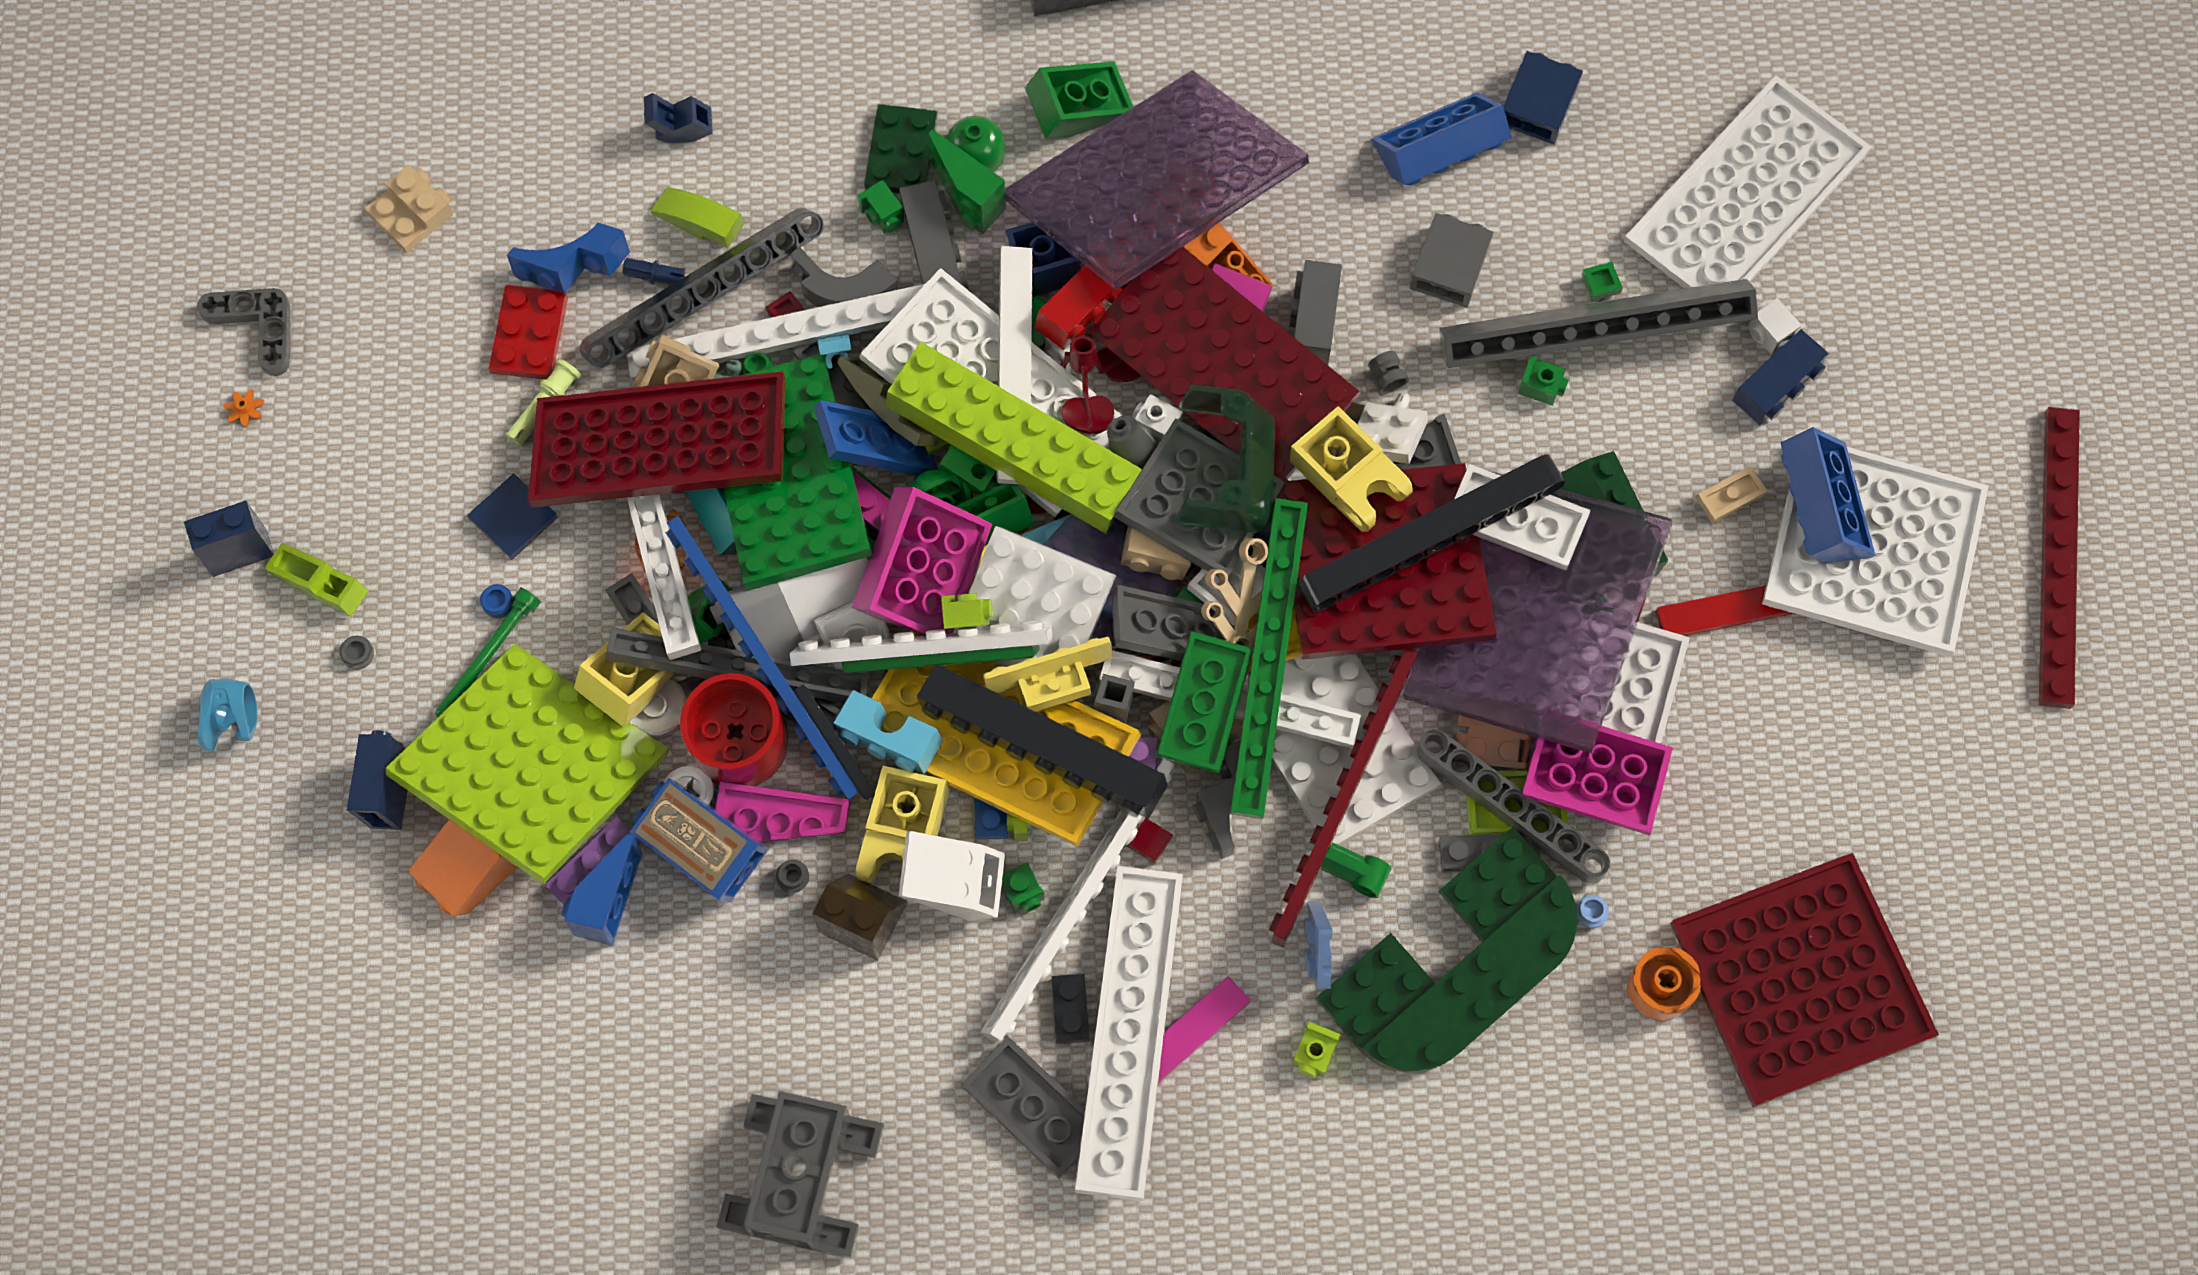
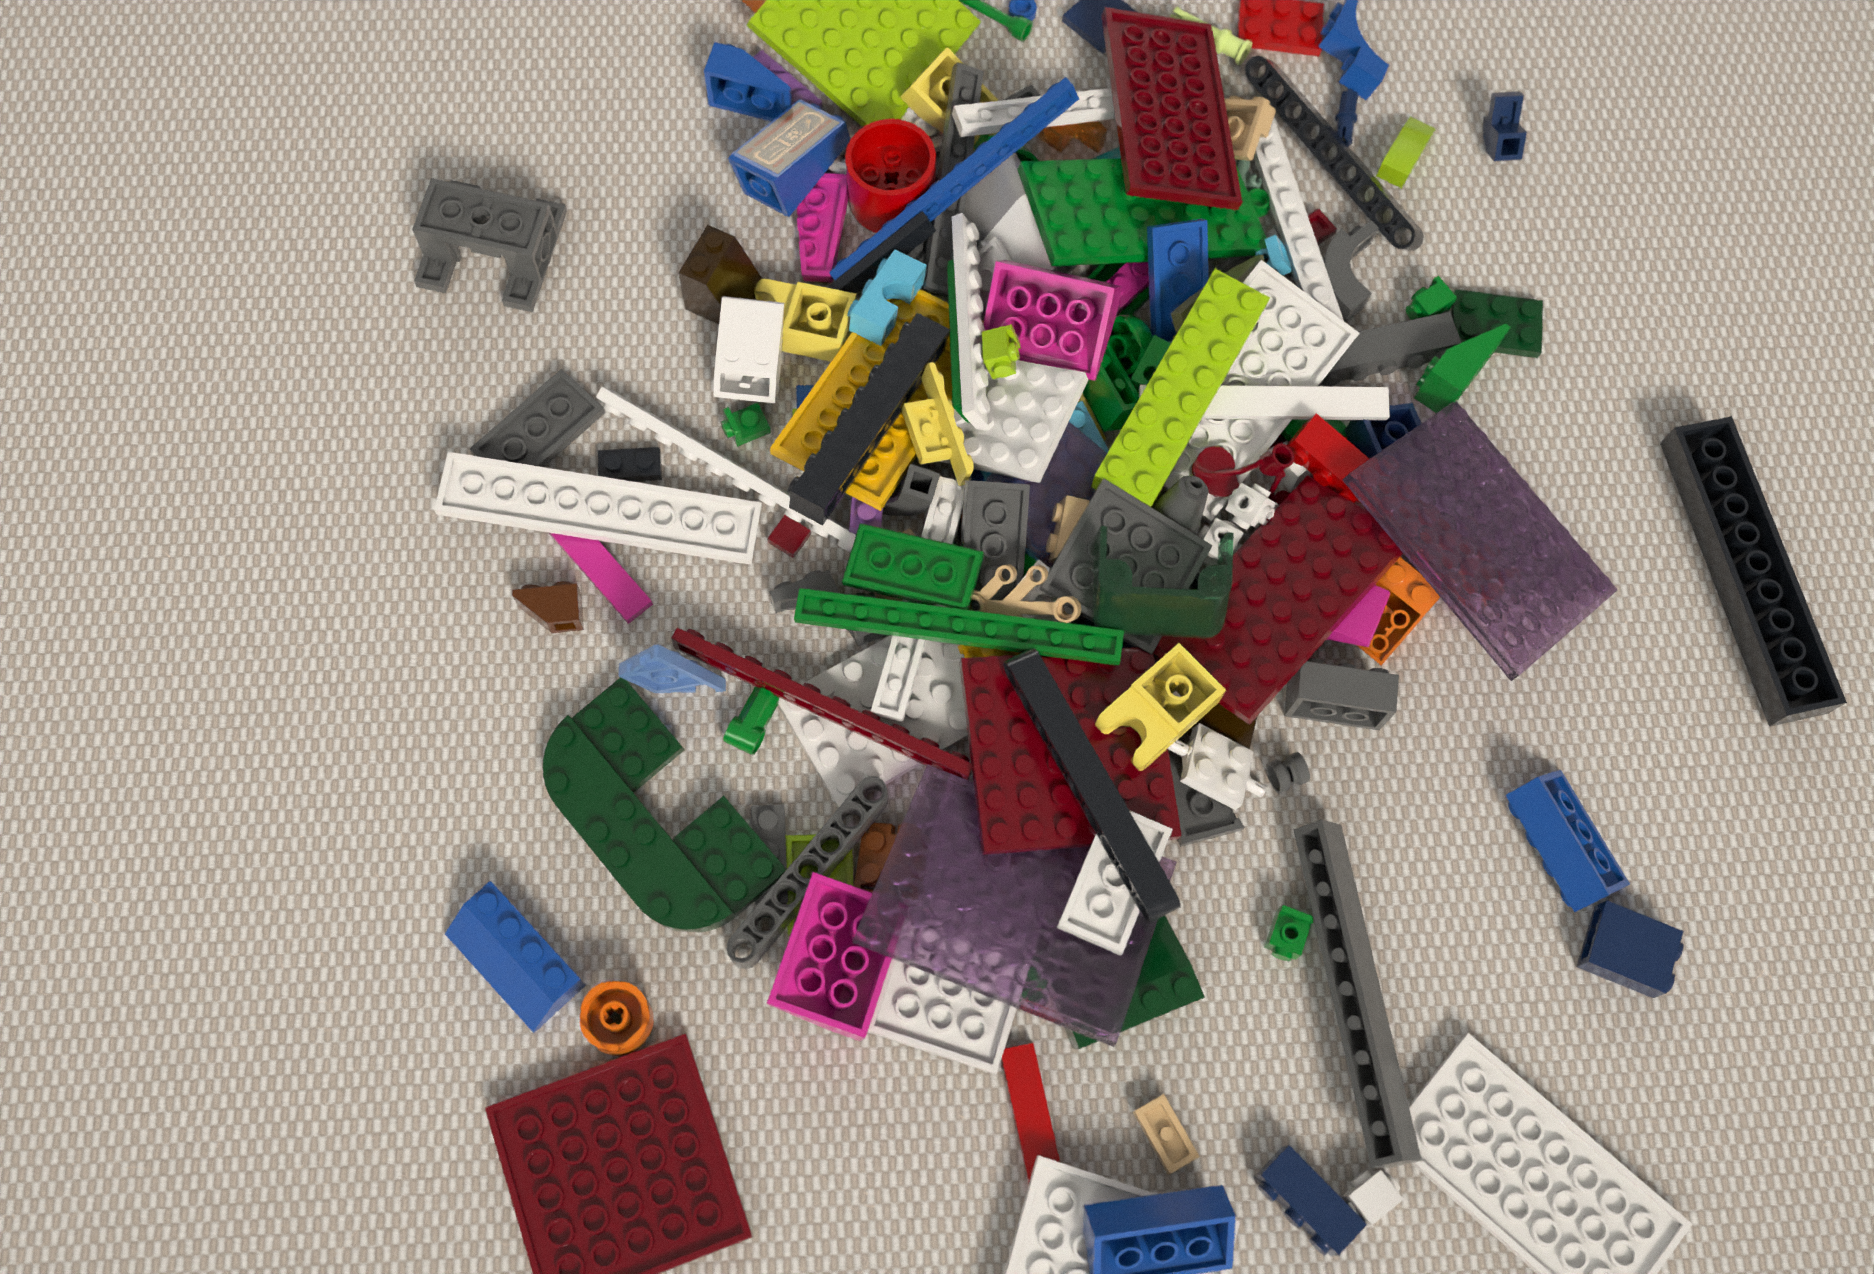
camera: 85 degrees right, 0 degrees up
(788, 867) = (764, 230): dark grey plate -> none
(980, 140) = (1506, 386): green cylinder -> none
(1077, 97) = (1572, 479): green slope -> none
(1115, 376) = (1251, 506): none -> white brick
(1240, 1074) = (554, 607): none -> reddish brown slope
(1315, 1036) = (577, 686): lime brick -> none
(1451, 259) = (1424, 843): dark grey brick -> none
(1592, 911) = (701, 953): light blue plate -> none
(1602, 281) = (1412, 1005): green plate -> none
(1608, 1090) = (513, 957): none -> blue slope

